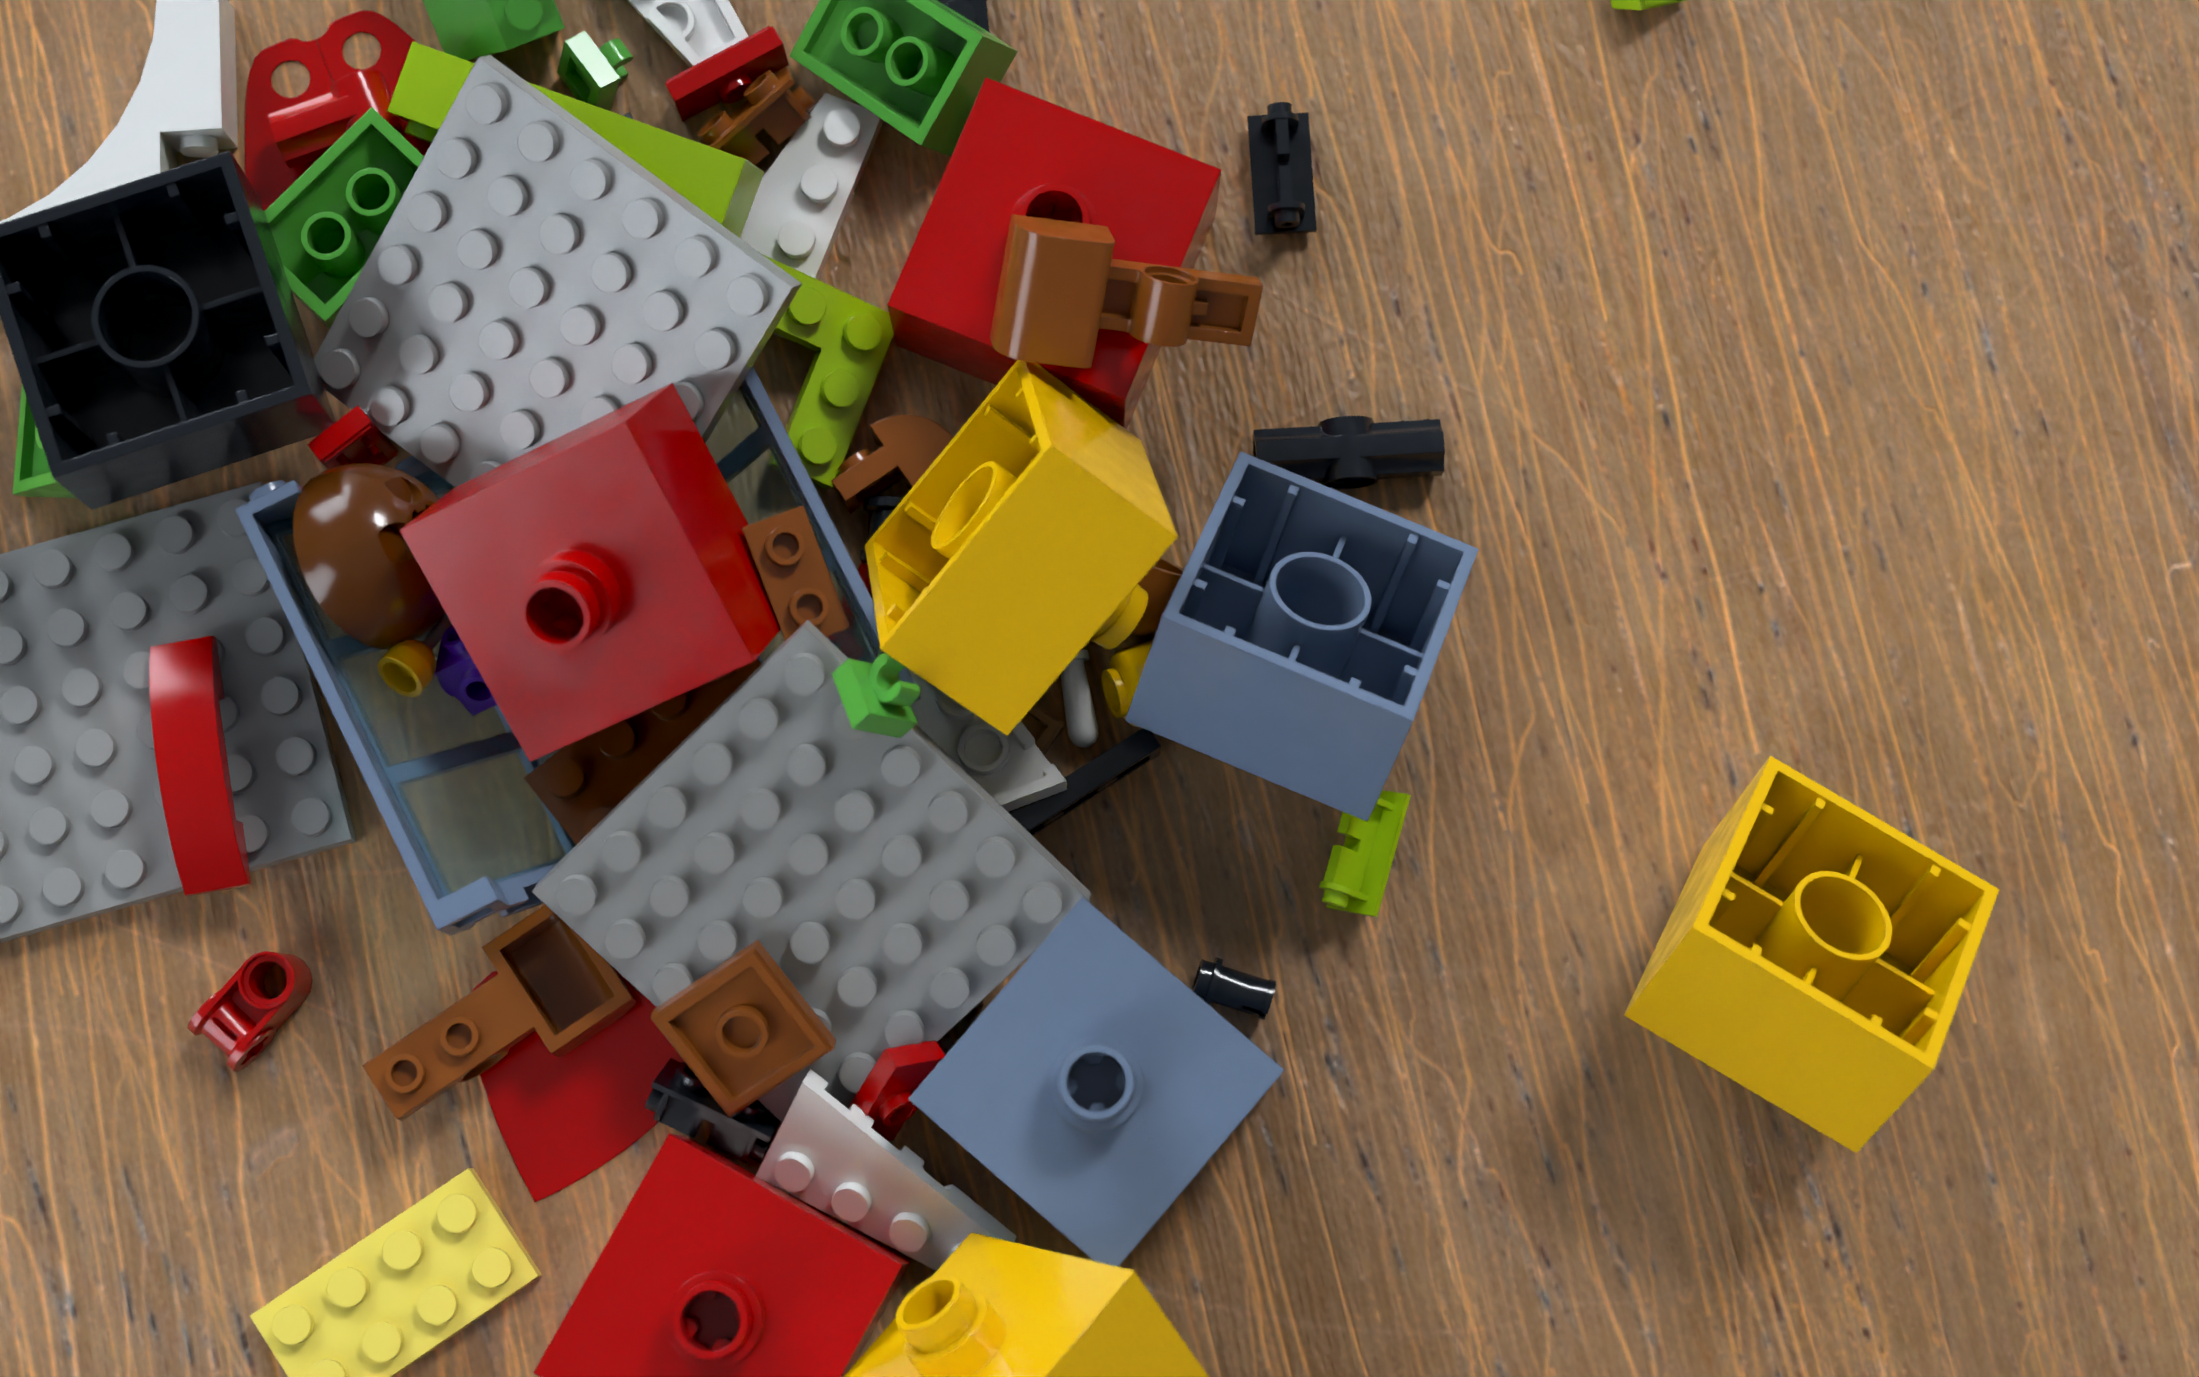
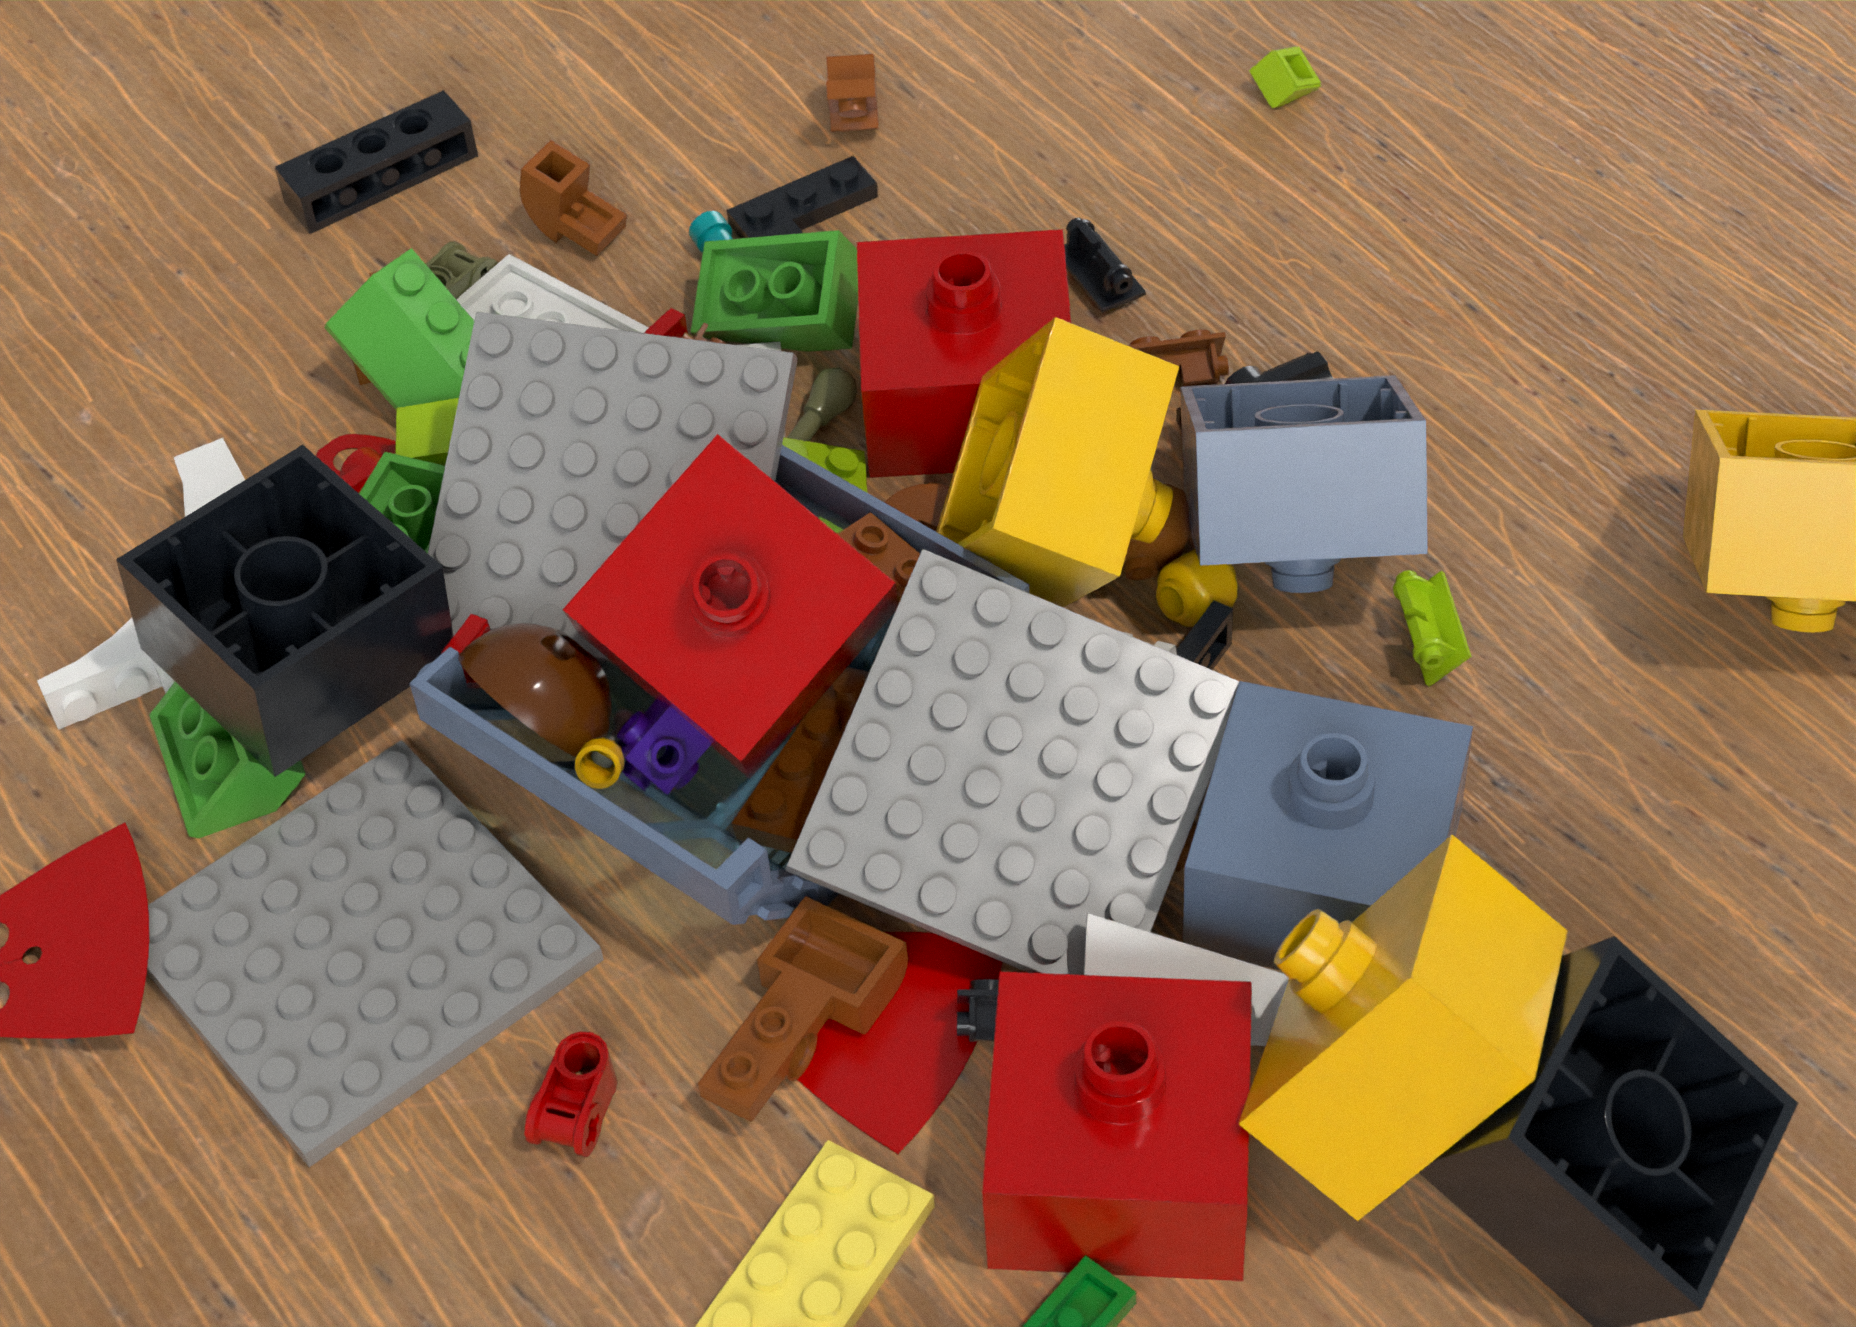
camera: 20 degrees left, 30 degrees down
(195, 767) = (449, 937): red slope -> none
(743, 1028) = (1015, 900): dark orange tile -> none
(876, 696) = (1007, 568): bright green tile -> none
(892, 225) = (829, 396): none -> olive piece
(892, 1082) = (1162, 899): red plate -> none
(1066, 286) = (995, 307): dark orange plate -> none
(1078, 703) = (1126, 604): white piece -> none
(1315, 355) = (1194, 352): none -> dark orange hinge

